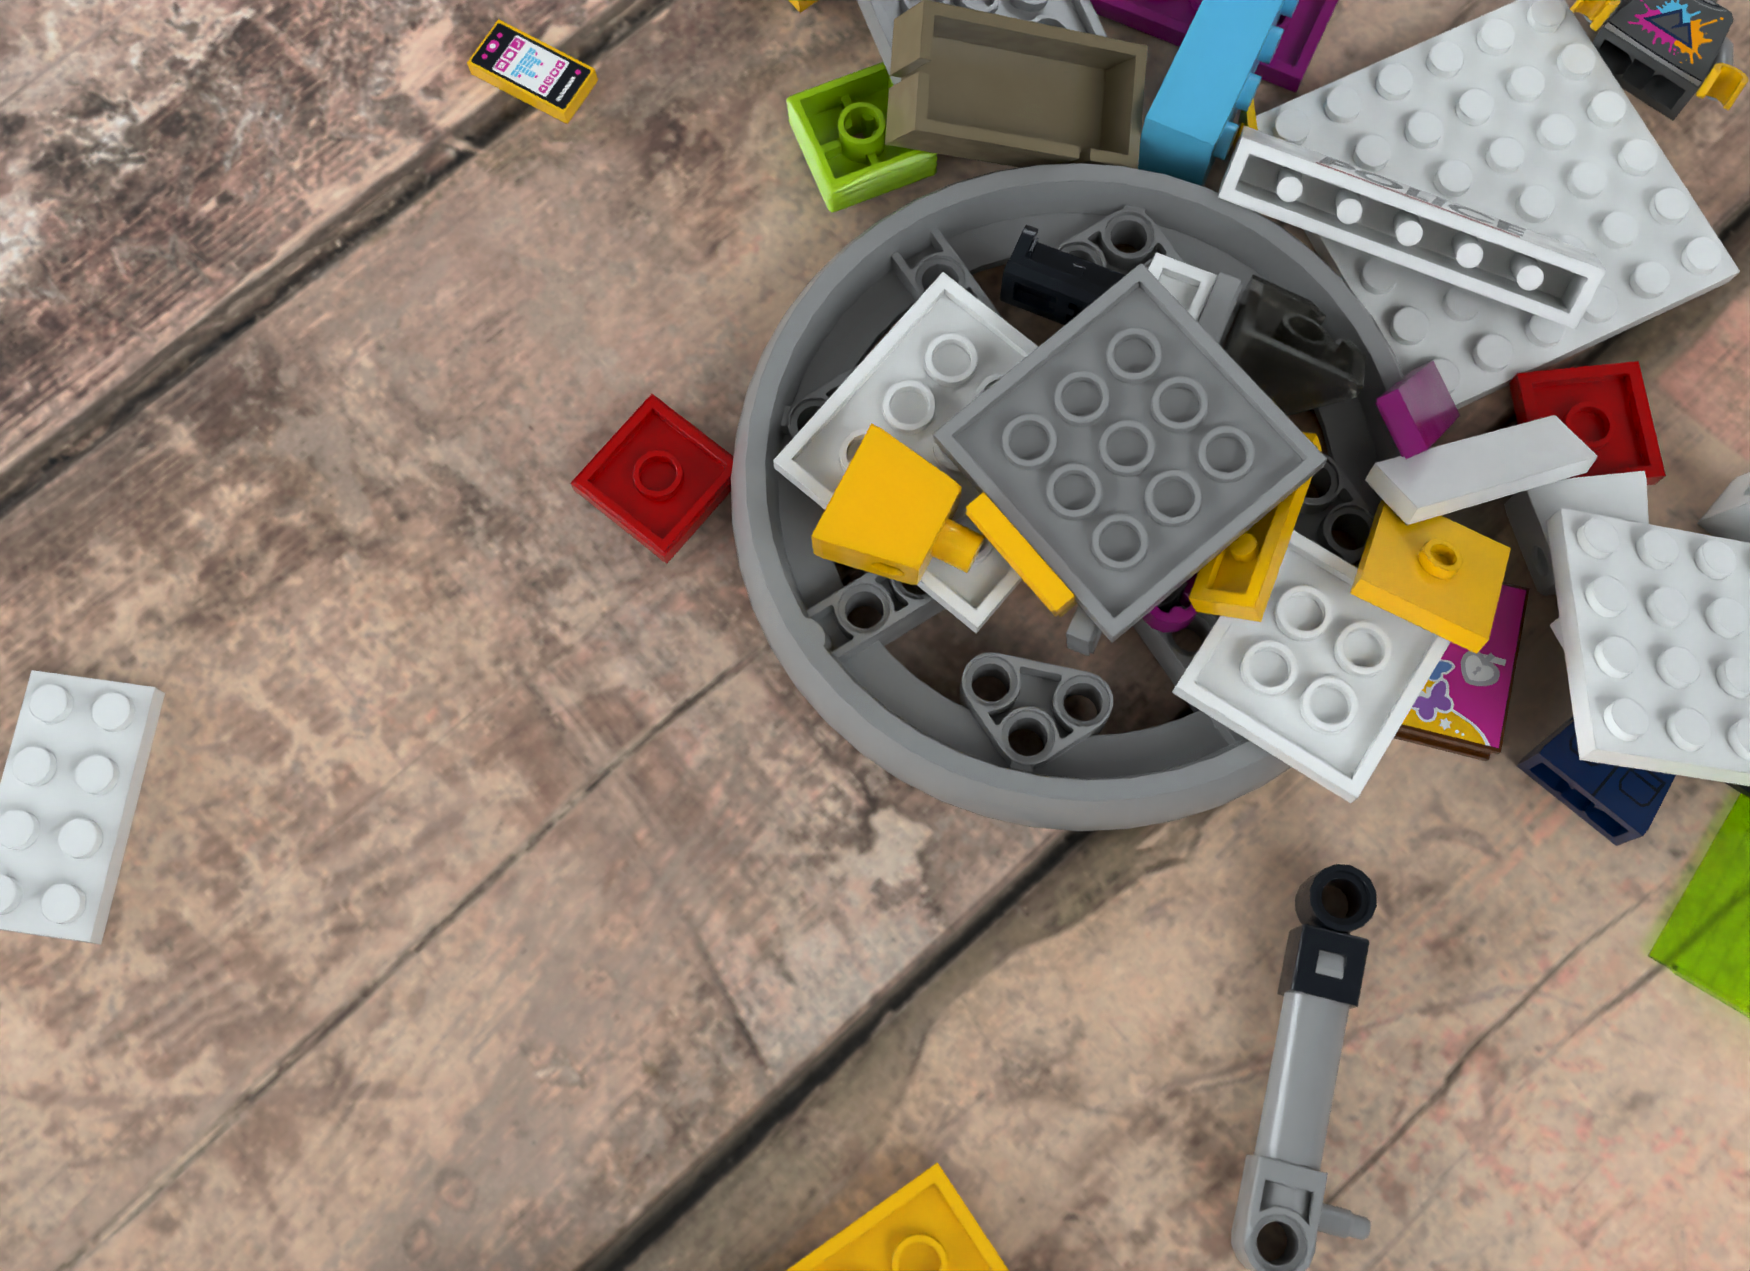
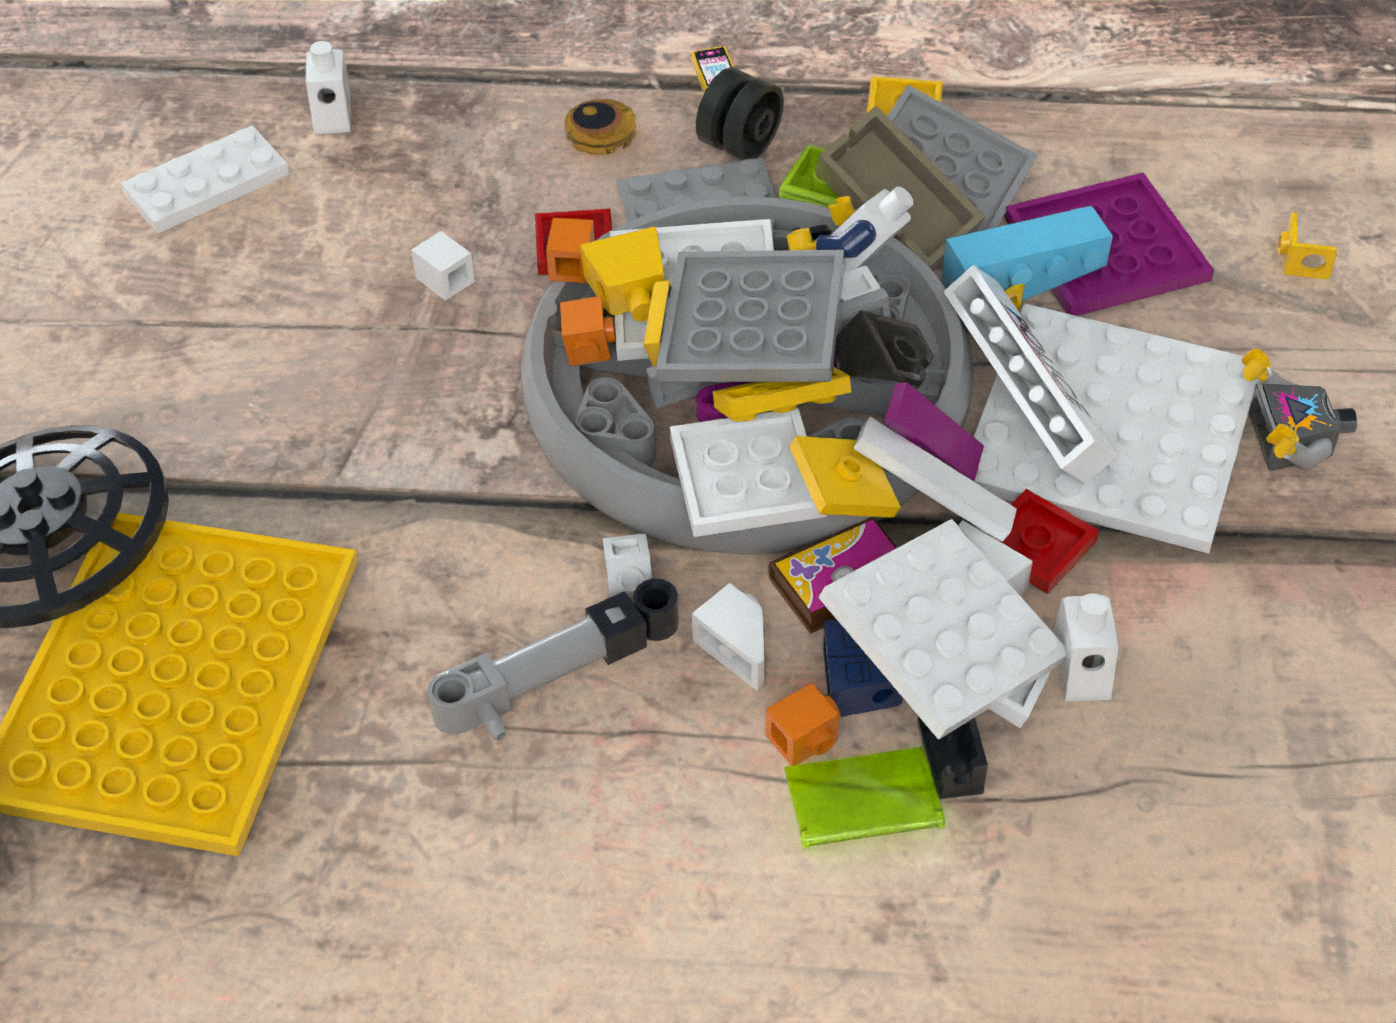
camera: 45 degrees right, 25 degrees down
(73, 523) = (328, 75): none -> white torso
(482, 273) = (600, 126): none -> clear yellow tile
(546, 661) = (443, 265): none -> white brick
(664, 120) = (739, 114): none -> pearl dark grey wheel
(720, 281) = (661, 190): none -> light grey plate
(758, 530) = (564, 249): none -> orange brick
(912, 632) = (586, 331): none -> orange brick
(1095, 201) = (861, 229): none -> torso
(1233, 868) = (626, 562): none -> white bracket
(1447, 846) = (732, 632): none -> white slope
(1634, 892) = (803, 724): none -> orange brick

